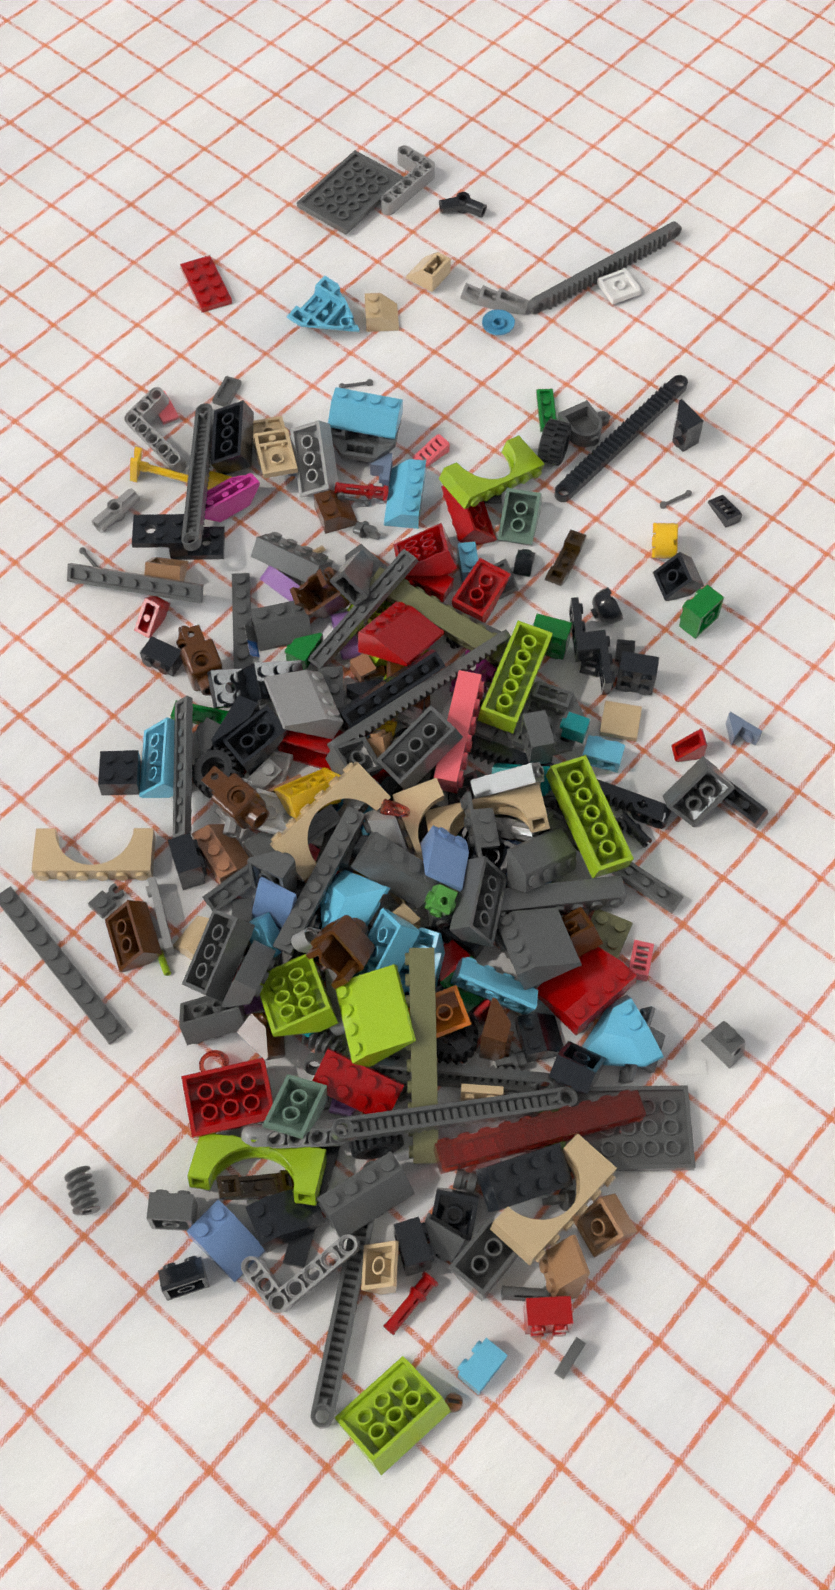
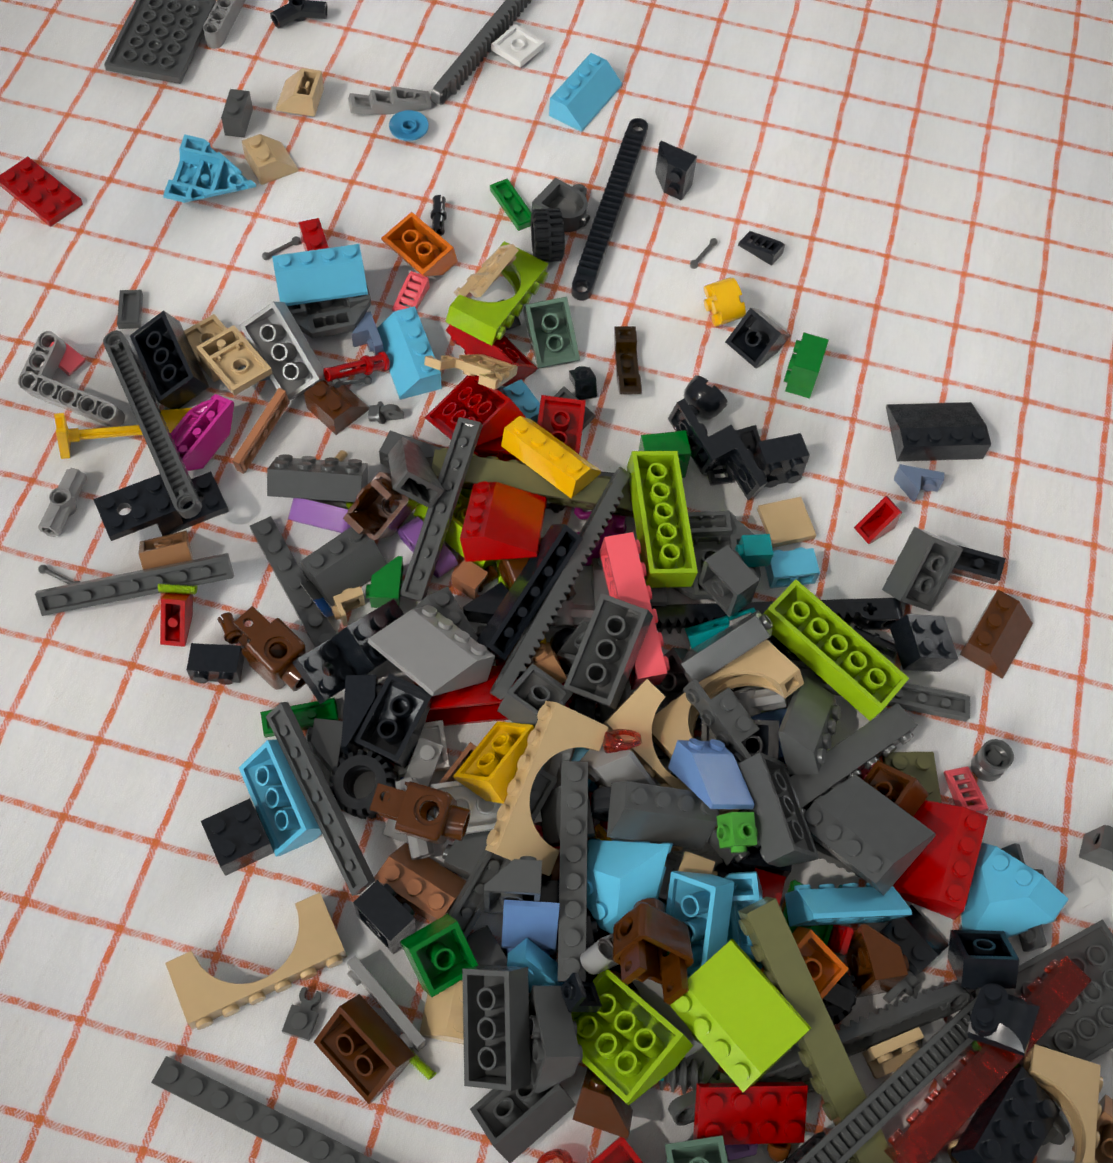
camera: 30 degrees left, 0 degrees up
(159, 596) = (177, 589): none -> lime piece
(204, 895) = (438, 954): none -> green brick
(270, 651) = (347, 601): none -> tan bracket
(271, 510) = (261, 431): none -> nougat tile
(281, 959) = (580, 995): none -> black bracket
(374, 271) = (237, 113): none -> dark grey brick
(381, 382) = (312, 235): none -> red brick
(447, 523) = (491, 371): none -> tan wing
(454, 418) = (420, 246): none -> orange slope
(459, 601) = (548, 456): none -> yellow slope
(484, 399) = (438, 214): none -> black pin
(491, 454) = (489, 272): none -> tan wing
(561, 1104) = (1002, 1019): none -> black slope
(651, 341) = (584, 93): none -> medium azure slope
(669, 844) = (923, 643): none -> black brick
(671, 945) = (992, 760): none -> dark grey wheel
(734, 863) = (998, 634): none -> reddish brown slope
(780, 700) = (937, 431): none -> black slope

